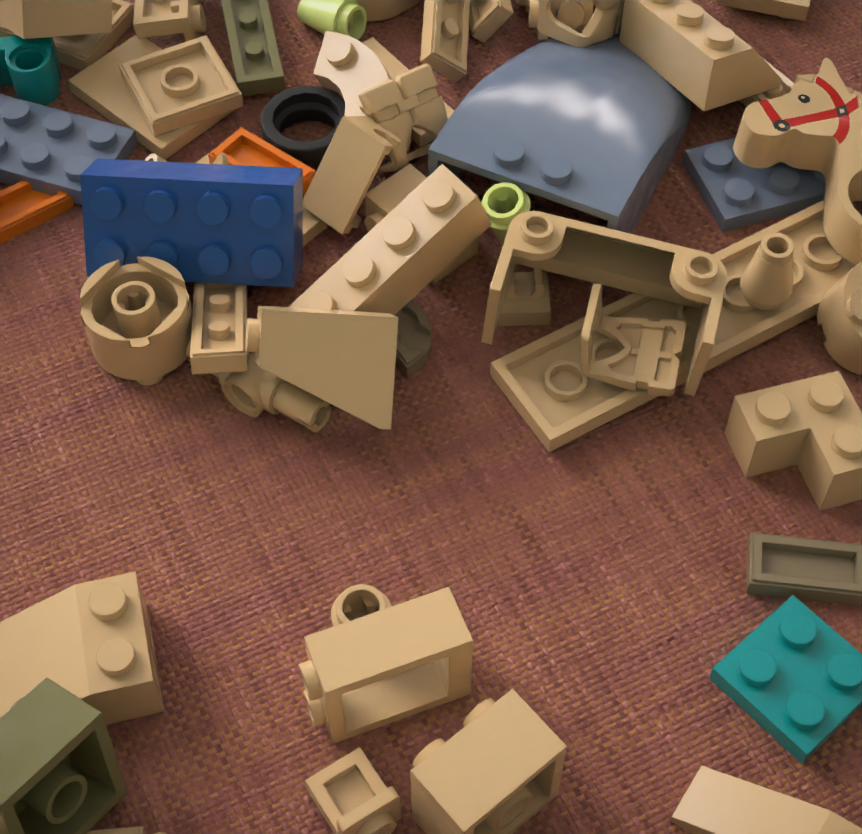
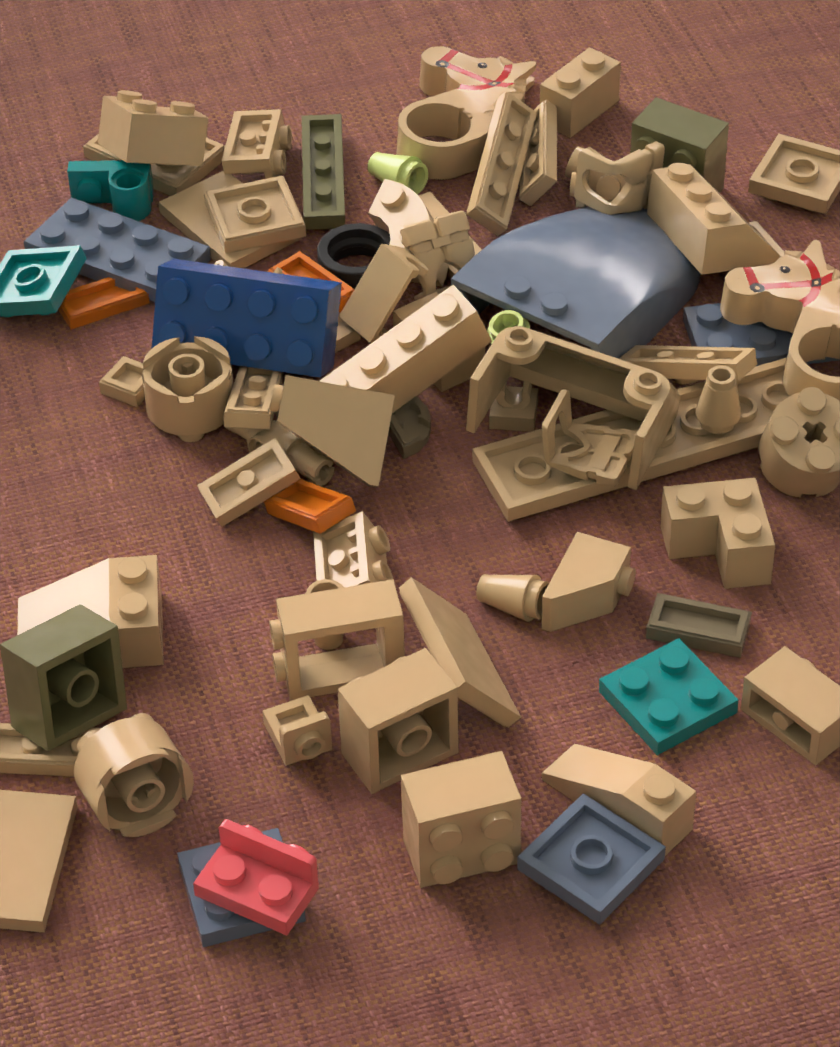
camera: 10 degrees right, 10 degrees down
(60, 314) = (124, 382): none -> tan tile
(231, 441) = (248, 482): none -> tan plate
(312, 464) = (310, 506): none -> orange tile
(377, 535) = (352, 552): none -> tan bracket
(539, 663) = (459, 652): none -> tan tile
(584, 558) = (513, 594): none -> tan cone
(668, 529) = (587, 582): none -> tan slope
(714, 222) = (691, 363): none -> tan plate

